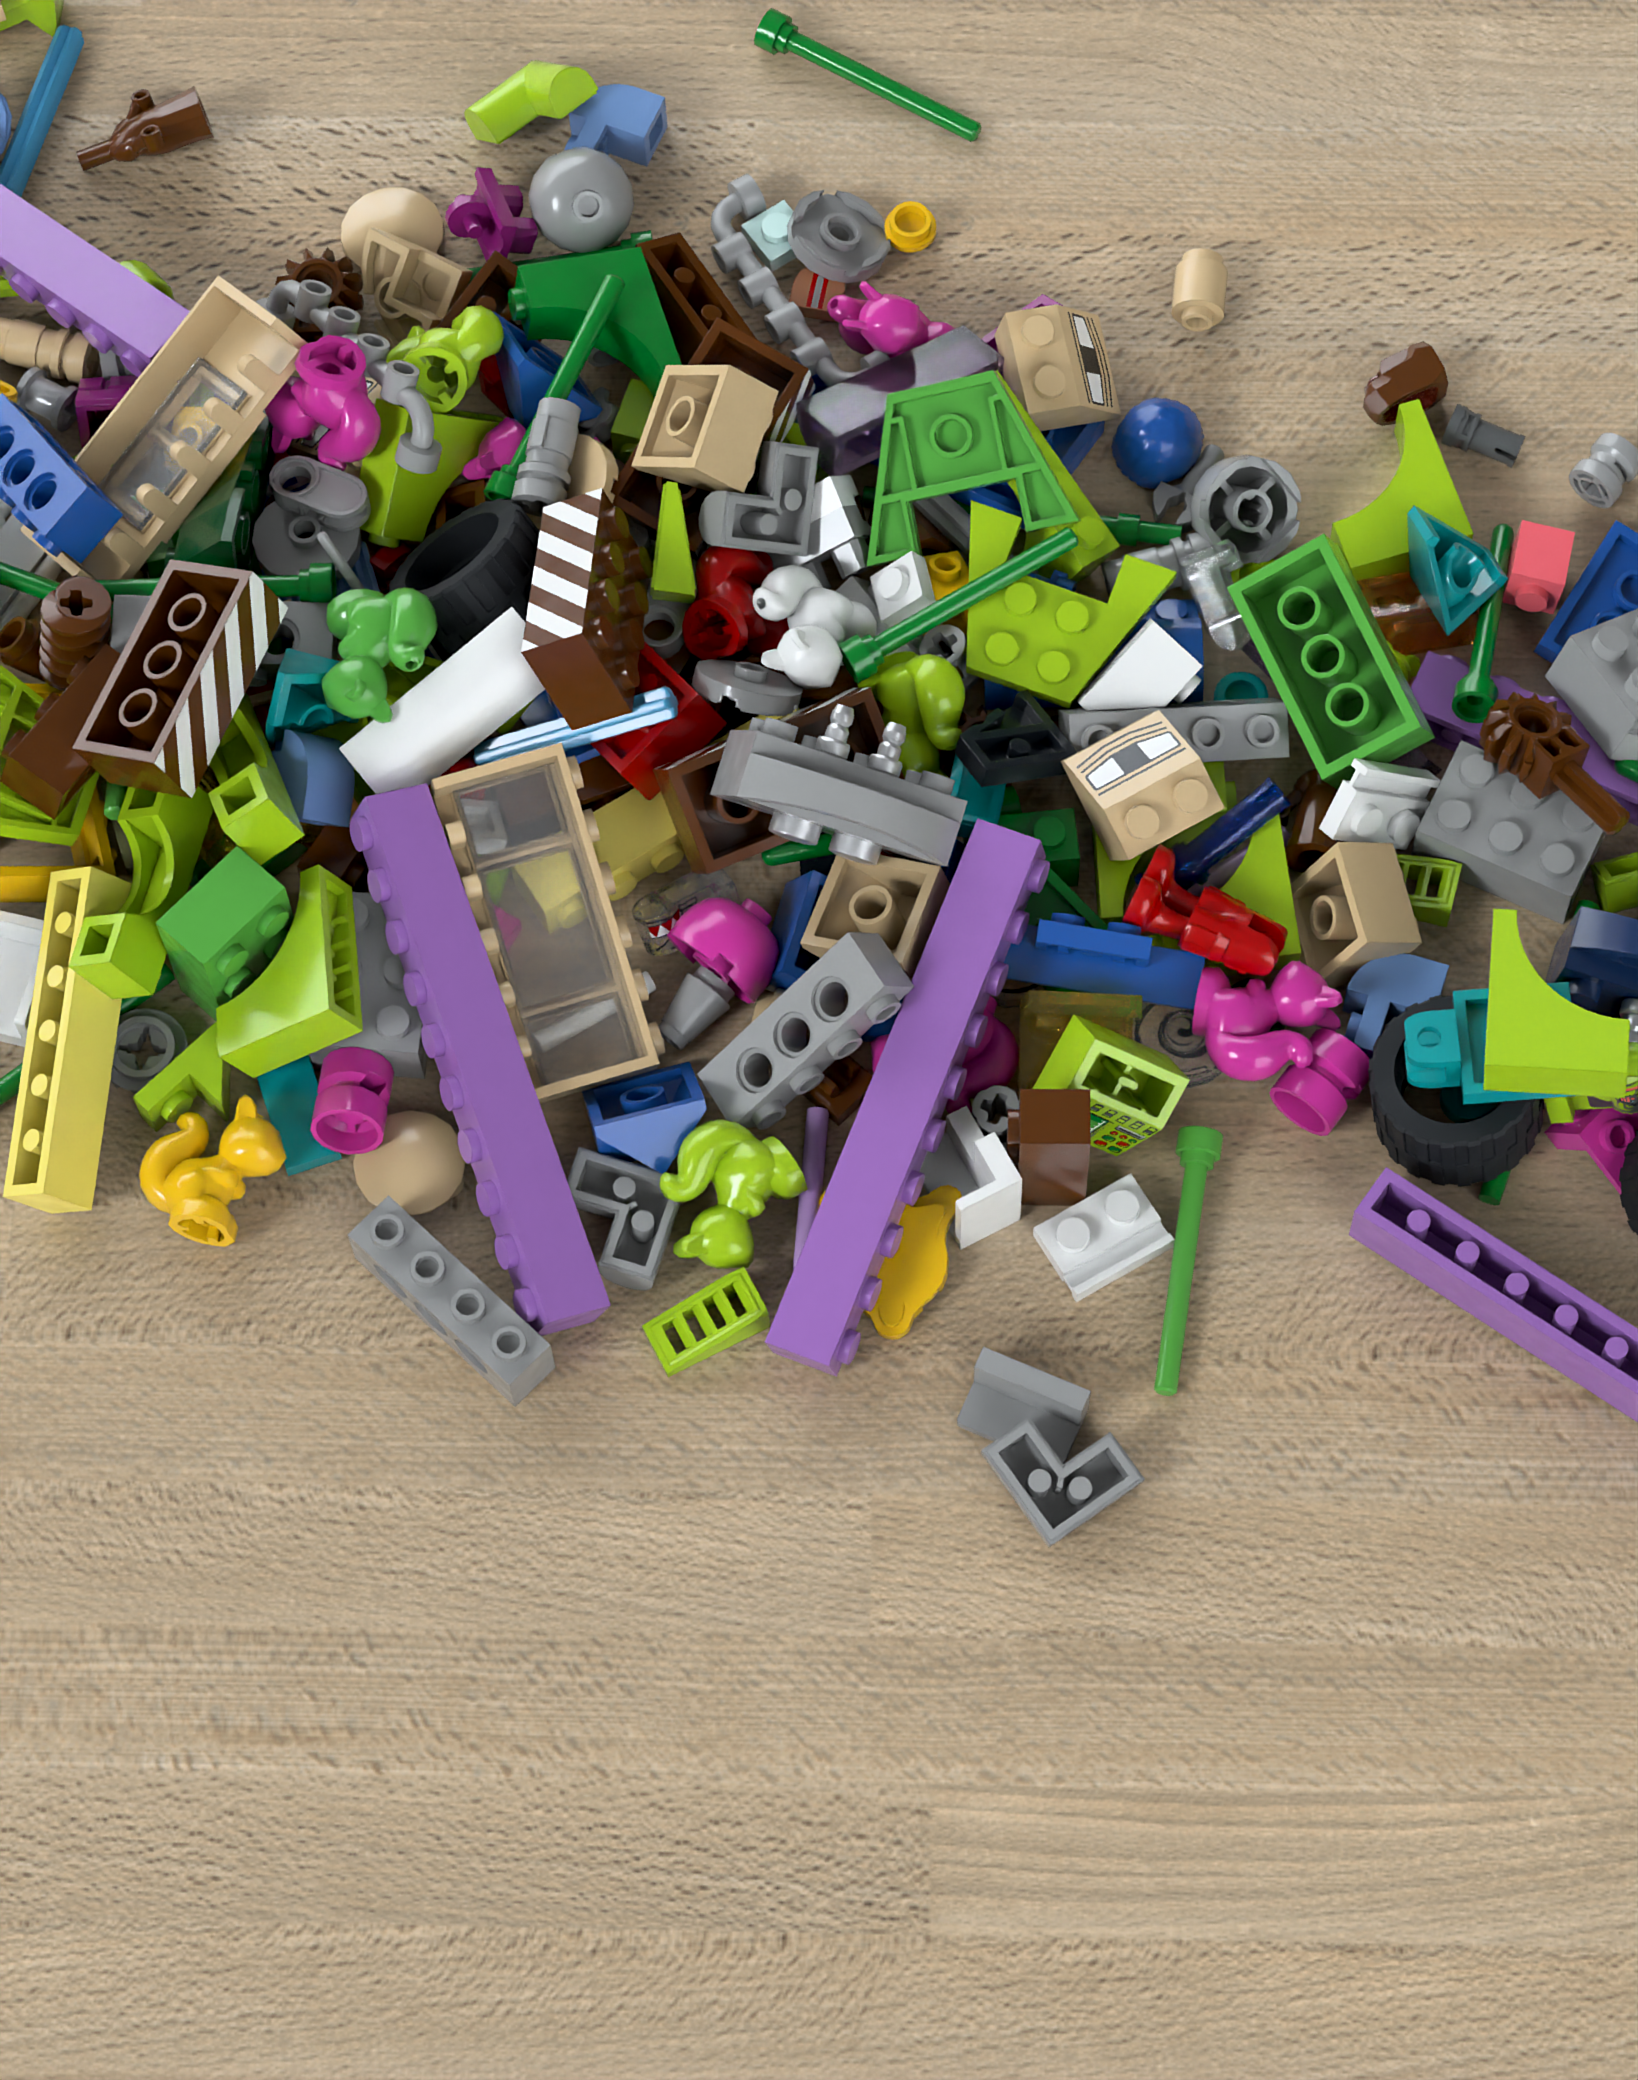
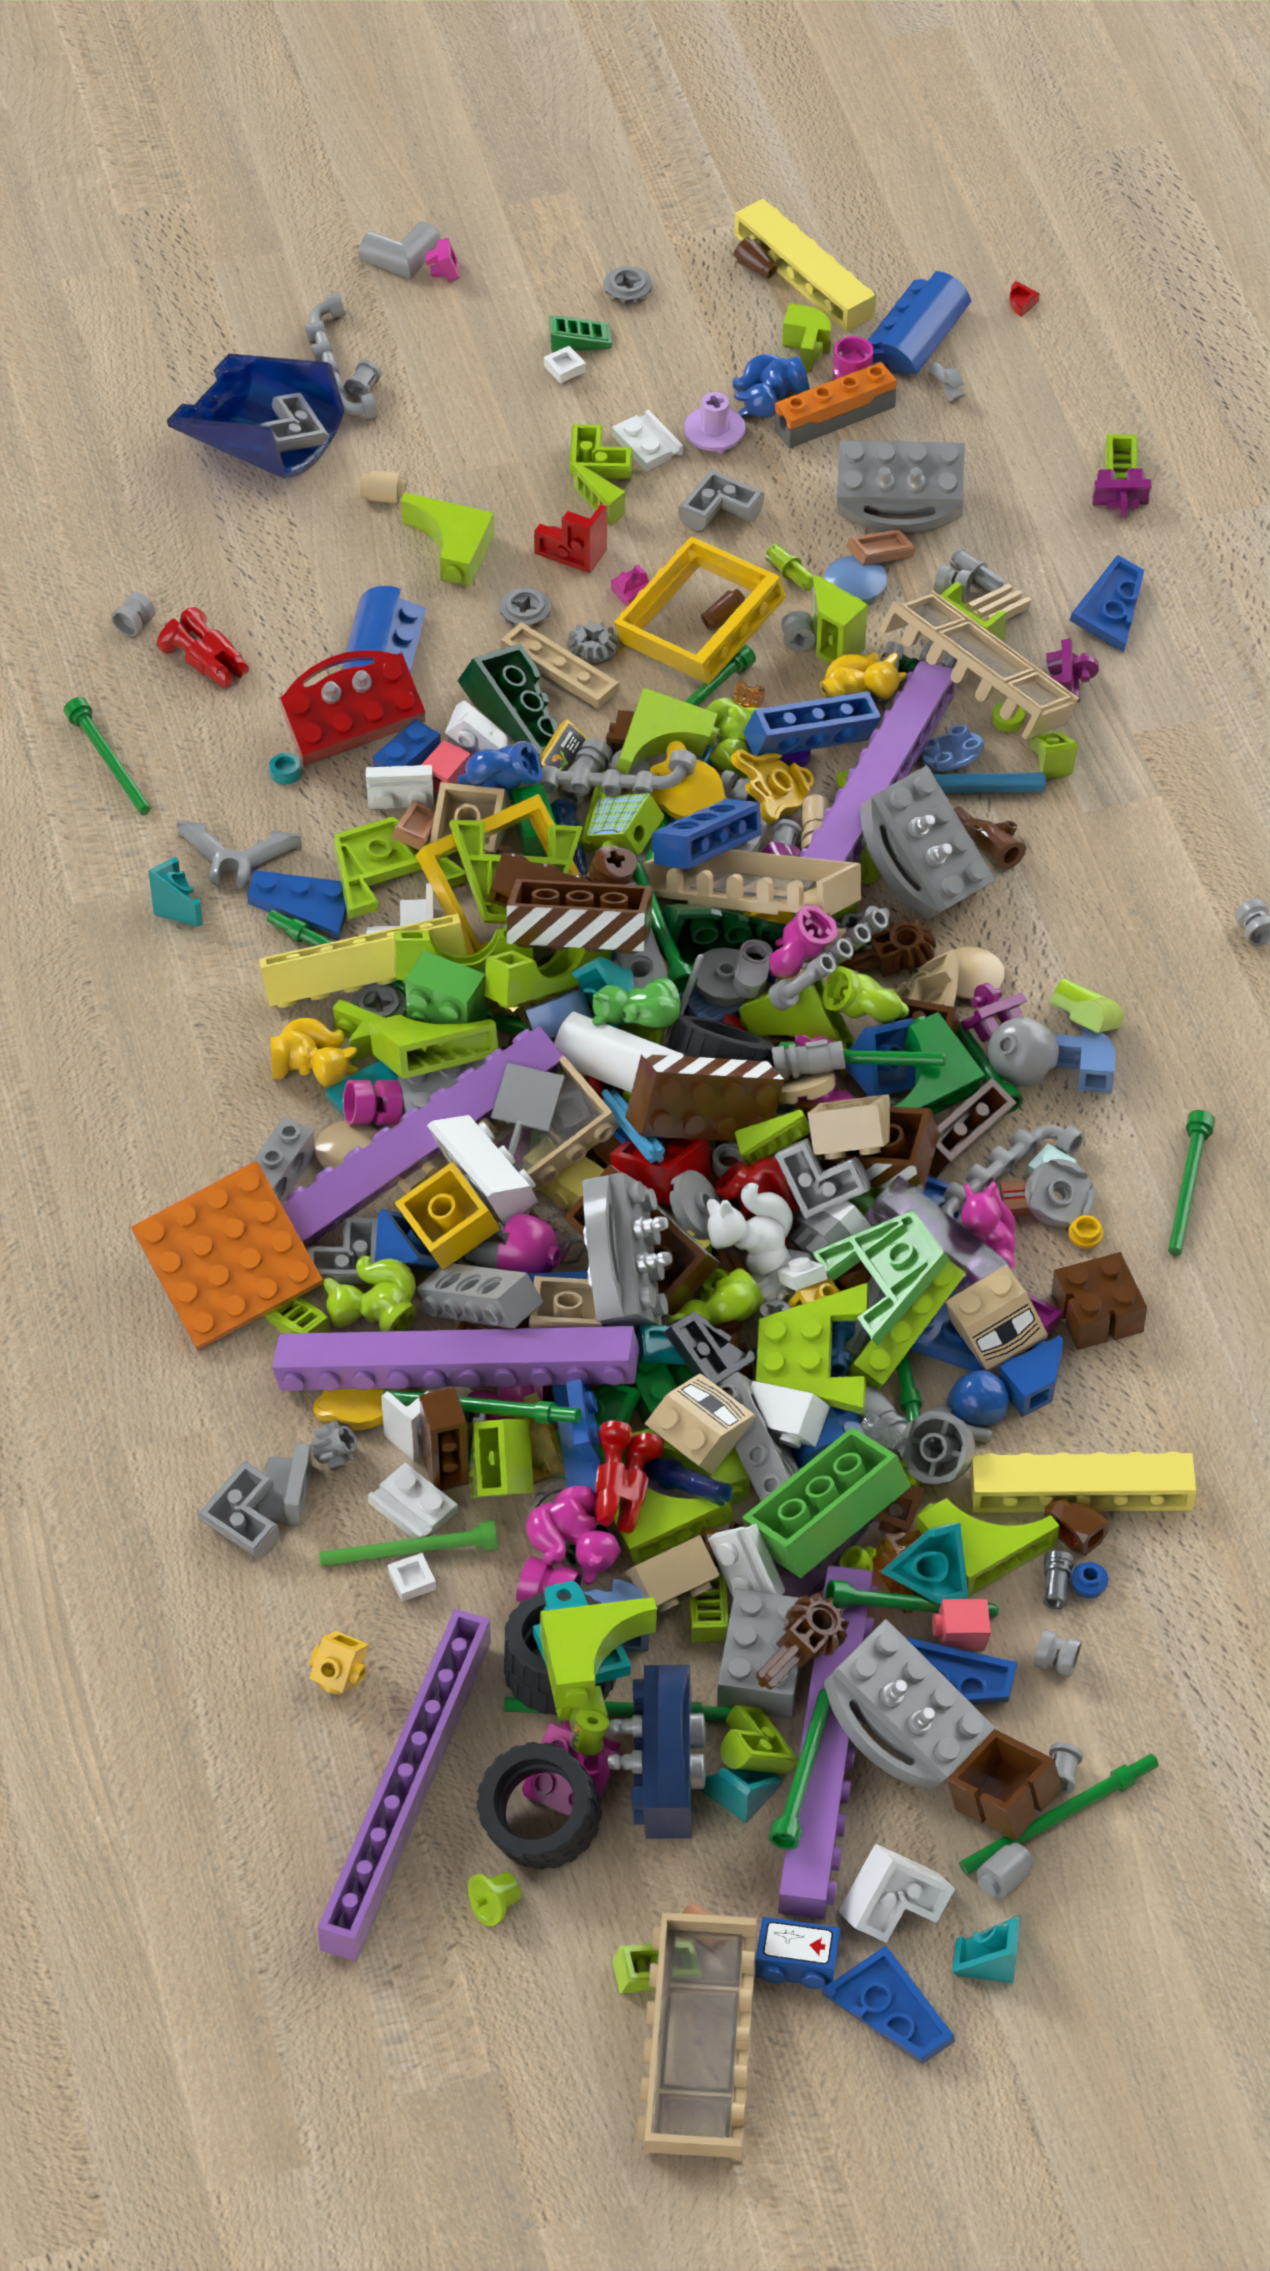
camera: 70 degrees right, 15 degrees down
(169, 200) = (926, 844): none -> light grey piece
(483, 861) = (527, 1099): none -> light grey piece
(588, 1382) = (227, 1255): none -> orange plate
(591, 951) = (484, 1165): none -> white slope
(650, 1033) = (447, 1215): none -> yellow brick
(866, 653) = (740, 1258): green piece -> none
(978, 1317) = (333, 1444): none -> light grey gear
(1043, 228) = (1098, 1290): none -> reddish brown piece
(1077, 986) = (542, 1412): none -> green bar
(1143, 357) = (1033, 1376): none -> blue slope
(1199, 289) = (1101, 1395): tan brick -> none
(1242, 1268) = (411, 1577): none -> white plate
(1338, 351) = (1097, 1479): none -> light yellow brick
(1379, 1403) = (338, 1662): none -> yellow brick
(1492, 410) = (1089, 1588): none -> blue plate

